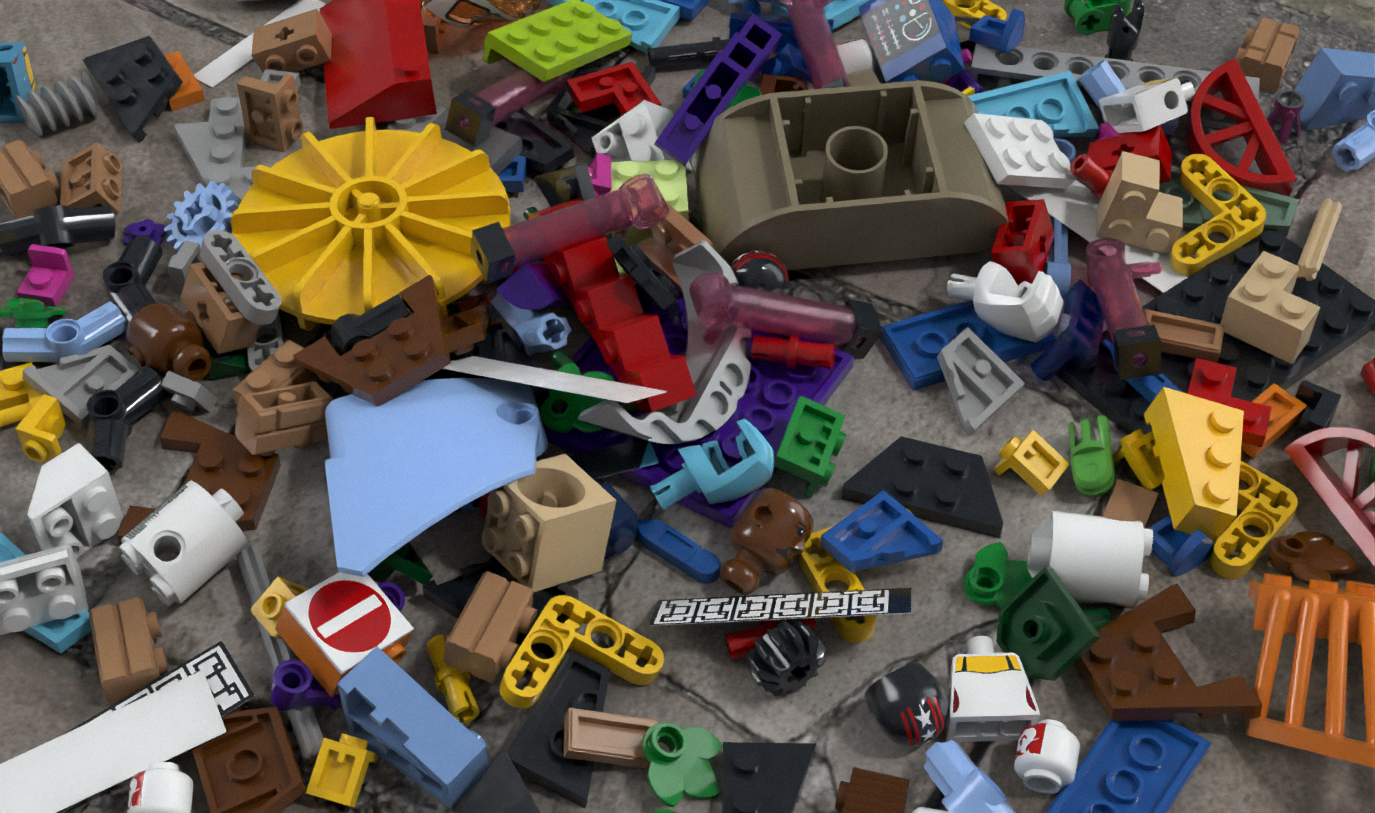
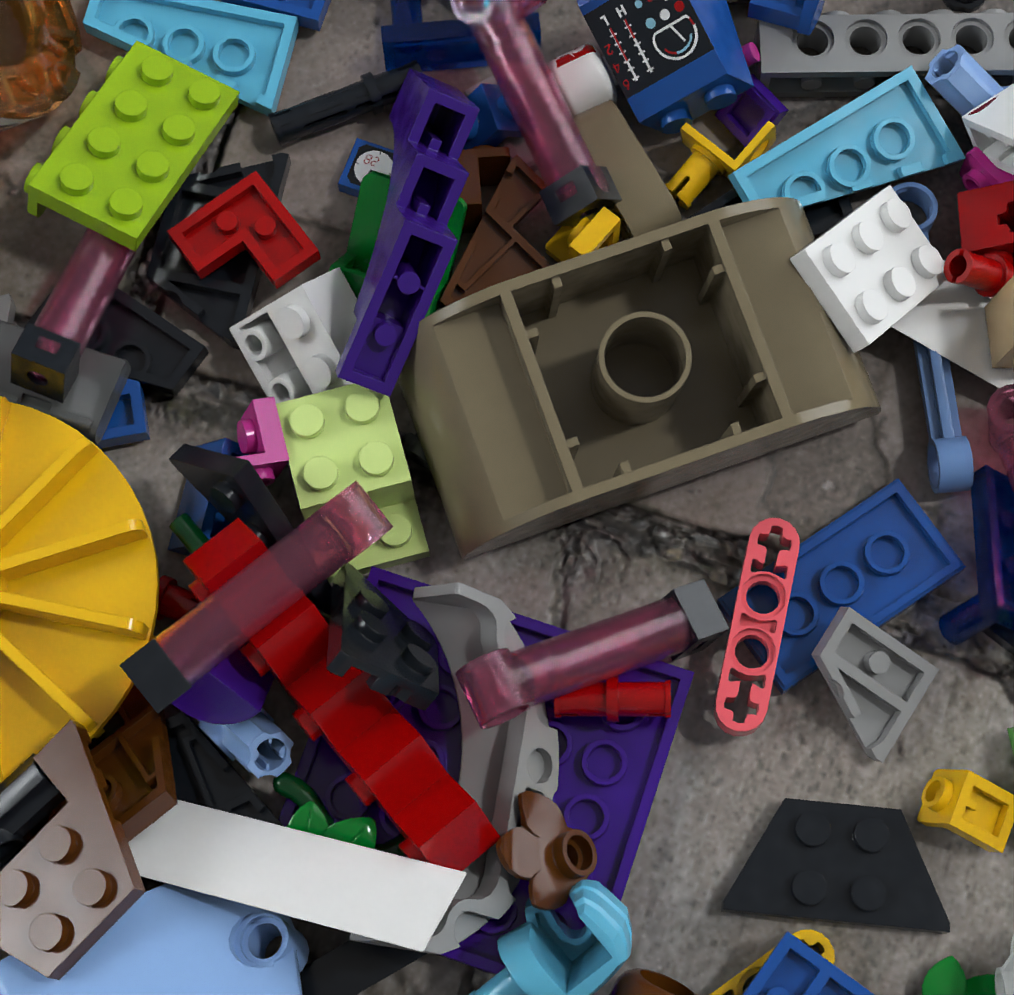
camera: 10 degrees left, 25 degrees up
(668, 239) = (412, 550): medium nougat bracket -> none
(722, 411) = (546, 852): none -> reddish brown plate
(760, 271) = (535, 579): black helmet -> none
(809, 442) = (668, 856): green bracket -> none
(906, 339) = (753, 625): none -> coral beam
(1013, 309) = (887, 541): white piece -> none
(1026, 241) = (900, 430): red brick -> none

